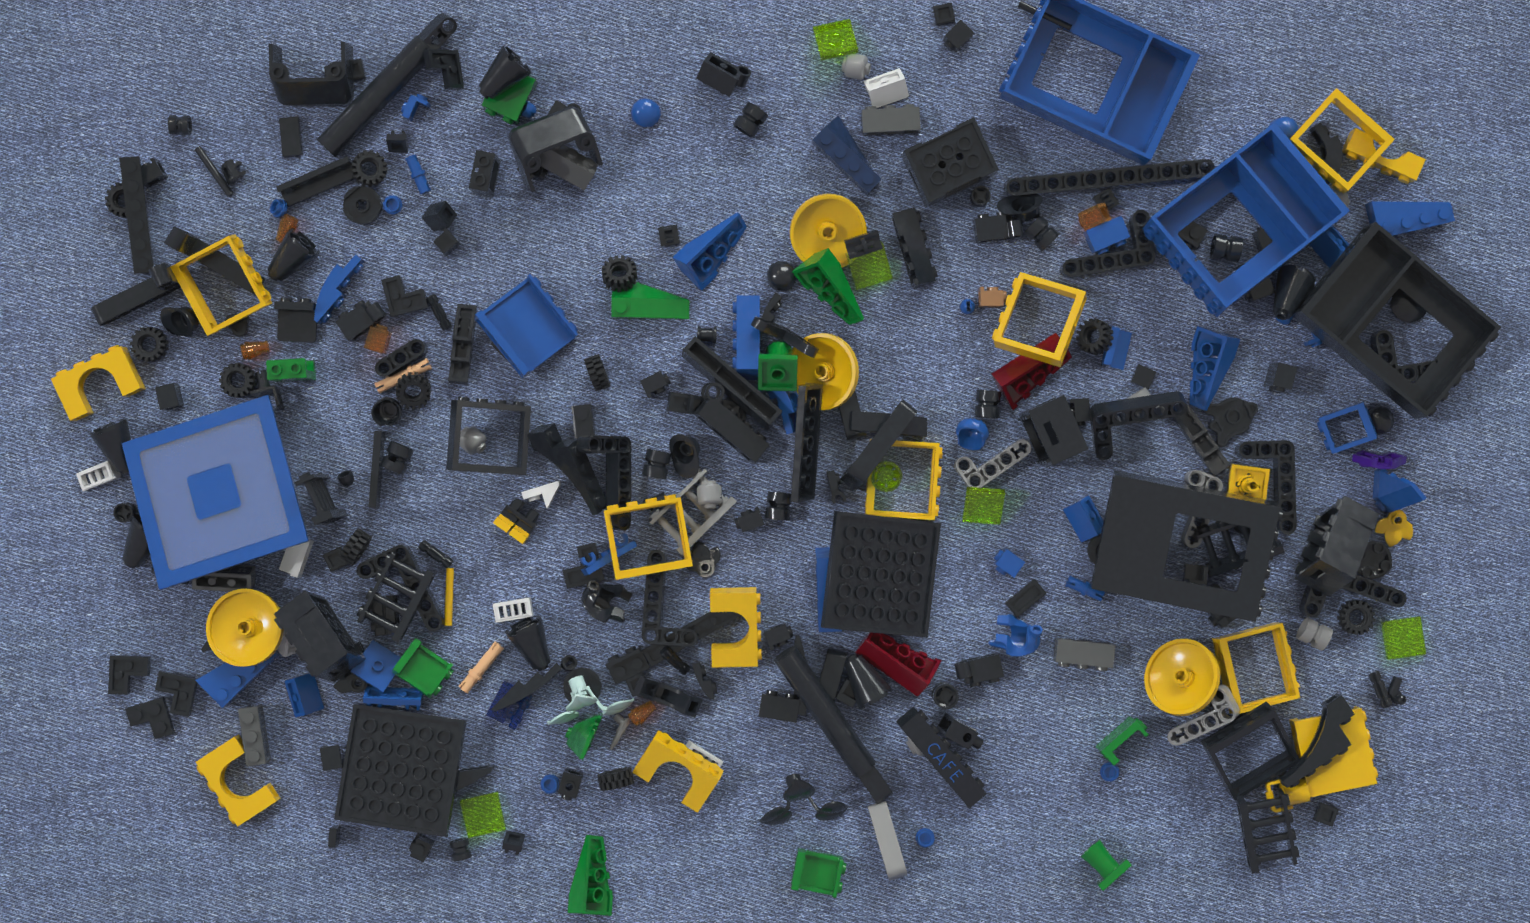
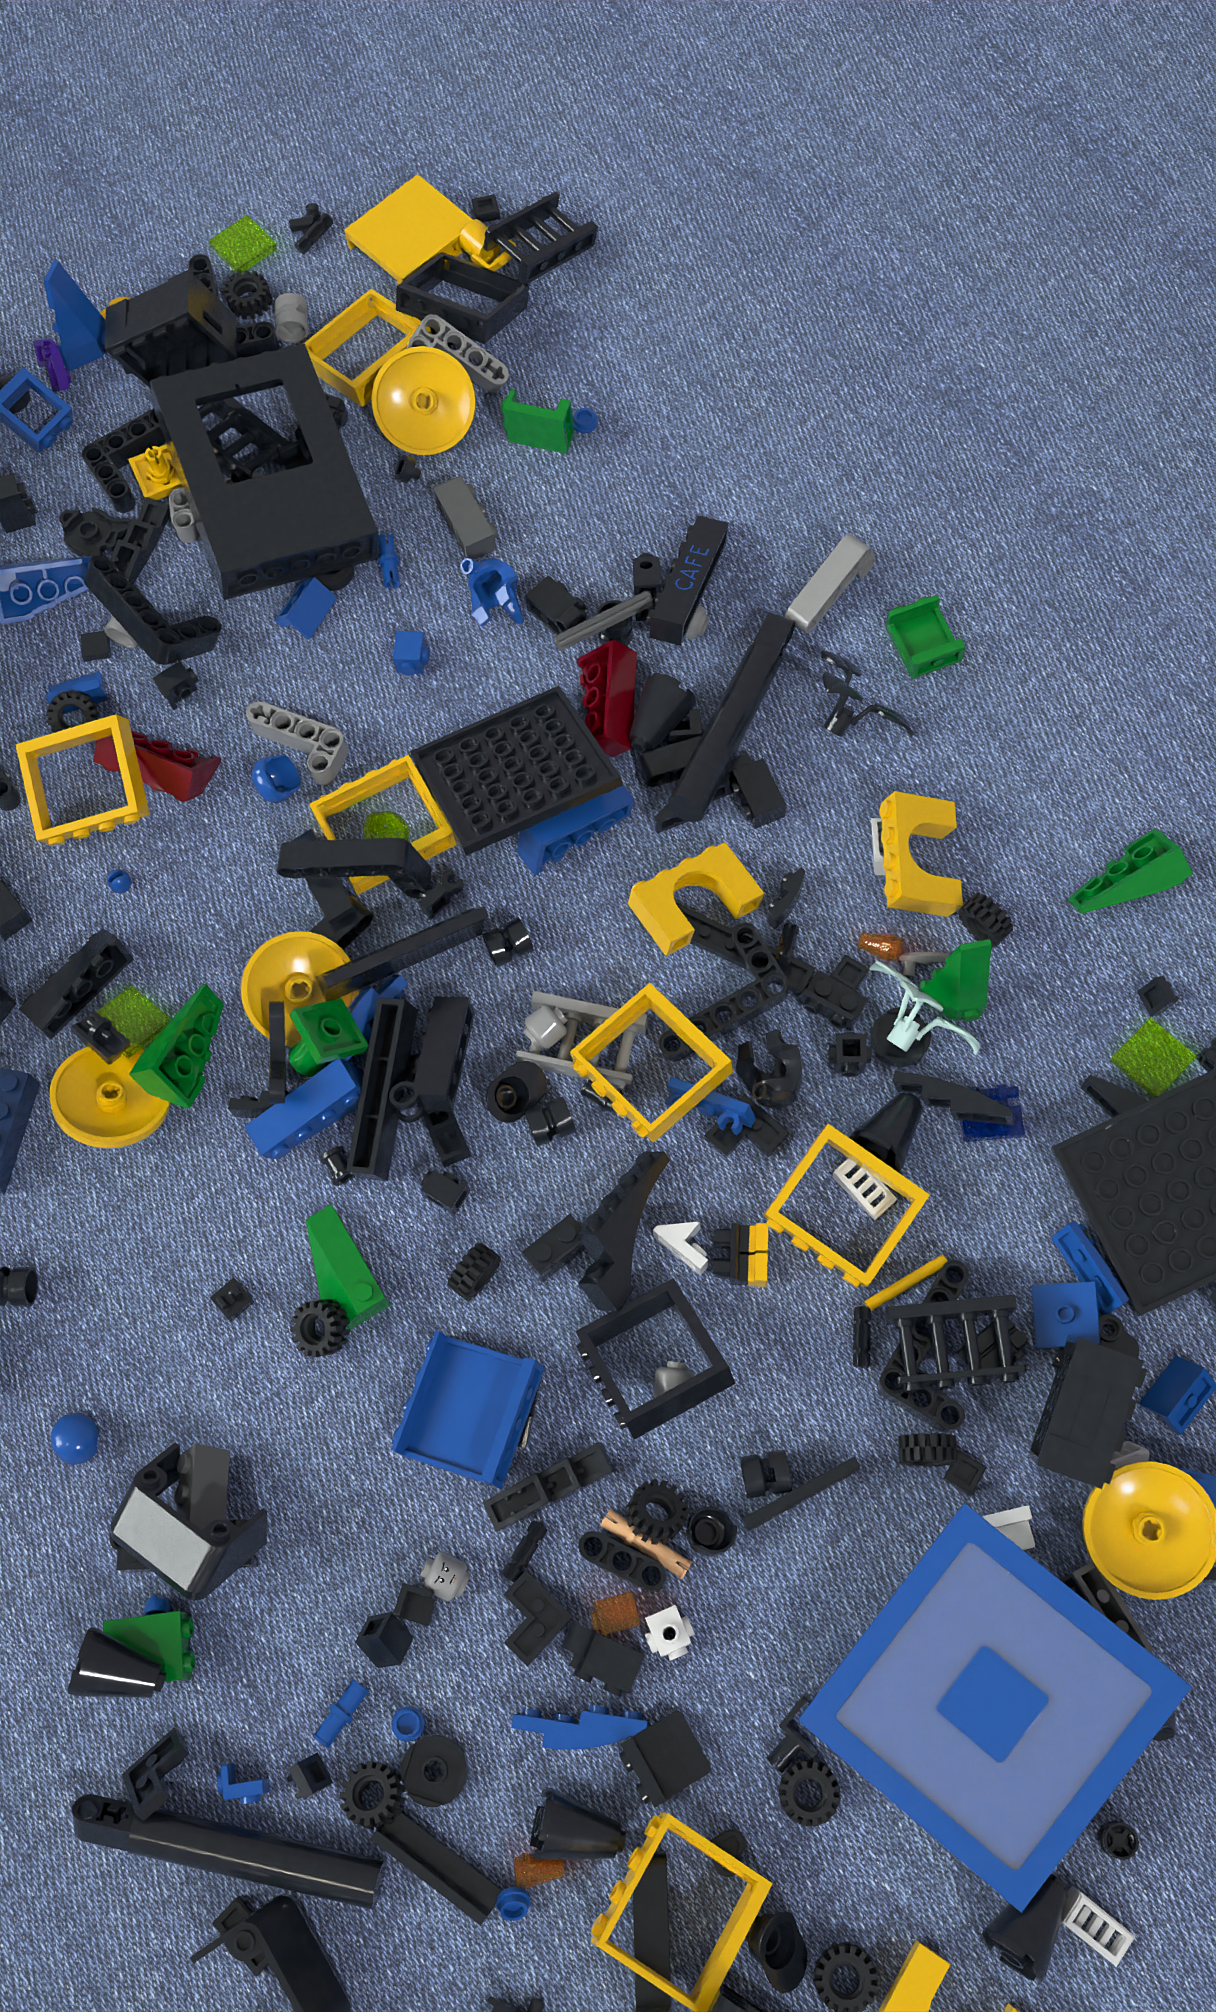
camera: 115 degrees left, 20 degrees down
(136, 545) = (1147, 1786): black cone -> none
(169, 396) = (902, 1888): black panel -> none
(254, 349) = (748, 1798): clear orange cone -> none
(290, 136) = (393, 1959): black tile -> none
(290, 370) = (741, 1712): green panel -> none
(320, 496) = (908, 1508): black fence -> none
(346, 478) = (842, 1532): black hinge -> none
(358, 359) = (659, 1623): none -> white brick
(423, 669) = (1025, 1249): green panel -> none
(450, 264) = (445, 1576): none -> light grey head
(484, 663) = (970, 1179): light nougat pin -> none
(485, 180) = (269, 1608): black window -> none
(537, 577) = (874, 1166): none -> yellow window
(550, 784) = (1052, 1000): blue plate -> none
(570, 667) = (885, 1067): black hinge -> none
(570, 777) = (1028, 981): black brick -> none
(581, 654) = (849, 1054): none -> black brick
(618, 472) = (591, 1163): black beam -> none
(668, 695) = (835, 922): black arch -> none
(703, 556) = (629, 984): black plate -> none
(704, 254) = (231, 1237): blue wedge -> none
(749, 520) = (548, 965): black brick -> none
(778, 635) = (671, 846): black brick -> none
(781, 276) = (205, 1121): black hair -> none
(925, 837) = (797, 554): blue plate -> none
(943, 689) = (603, 620): none -> dark grey axle
(983, 505) = (357, 716): clear neon green tile -> none
(987, 404) = (228, 783): black wheel -> none
(991, 297) = (90, 859): medium nougat brick -> none
(1025, 598) = (441, 615): black tile -> none
(1056, 429) = (207, 675): black container -> none
(1104, 864) = (693, 350): green plant -> none
(1145, 638) = (406, 469): none -> black tile
(1327, 741) = (404, 233): black arch -> none

